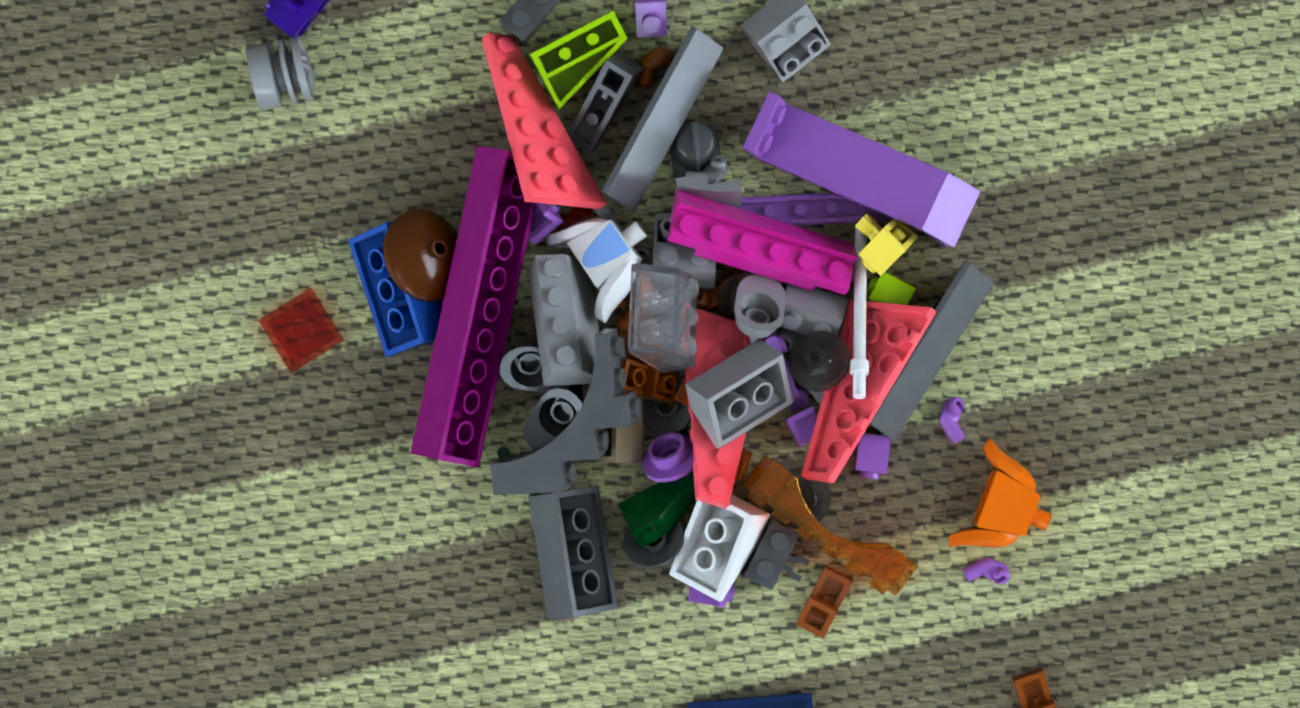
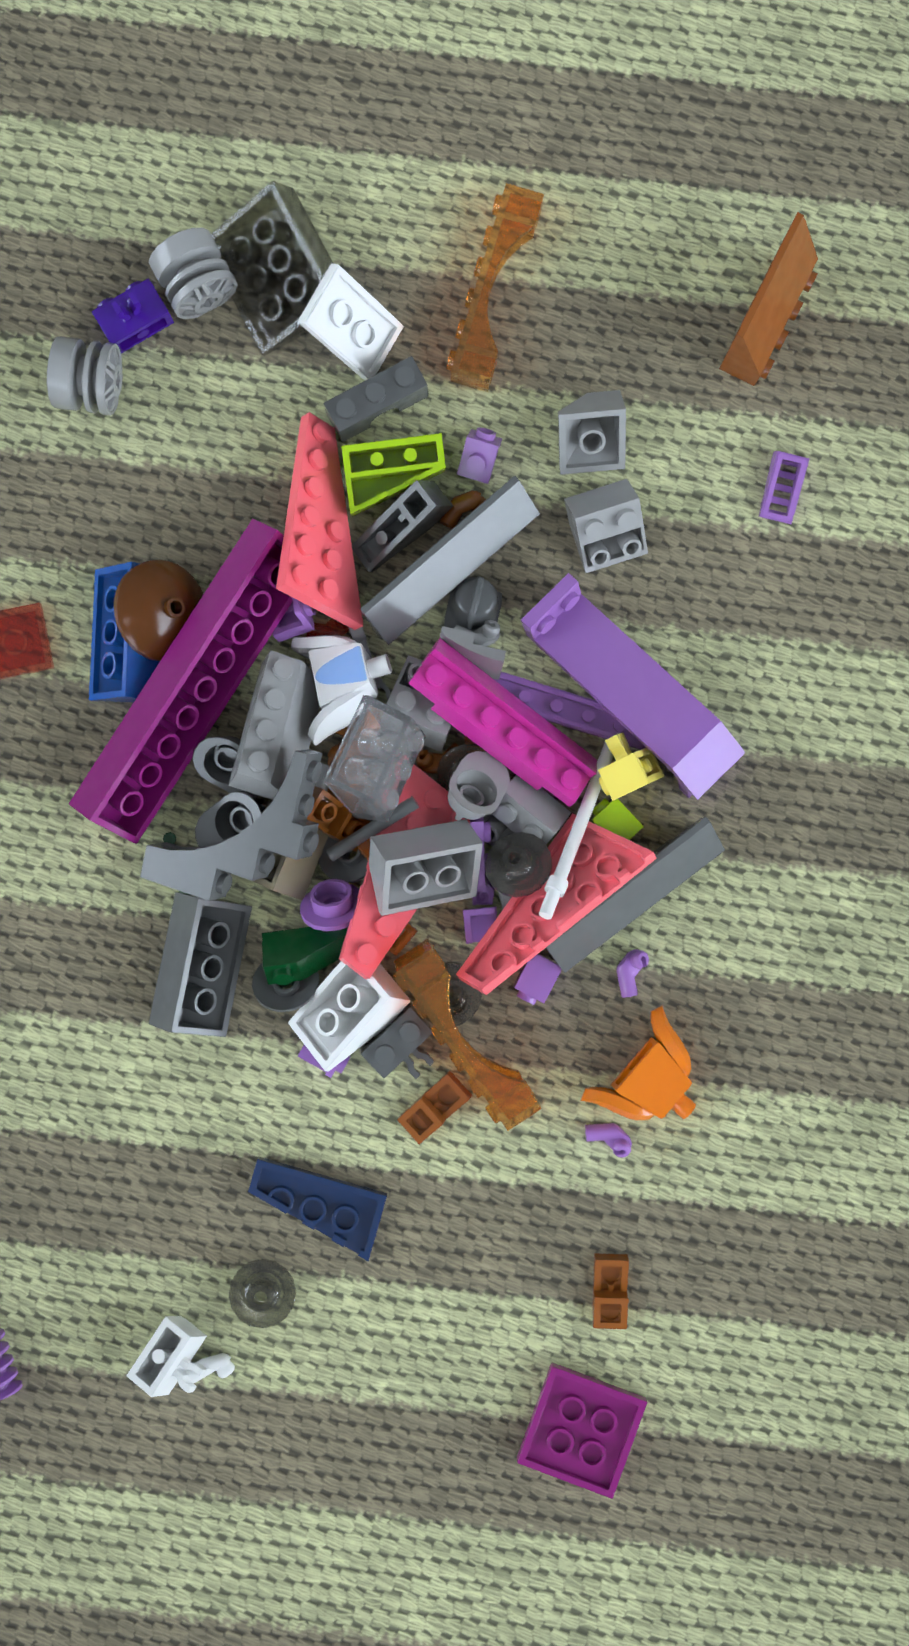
camera: 15 degrees right, 0 degrees up
(680, 379) = (371, 829): none -> dark grey bar

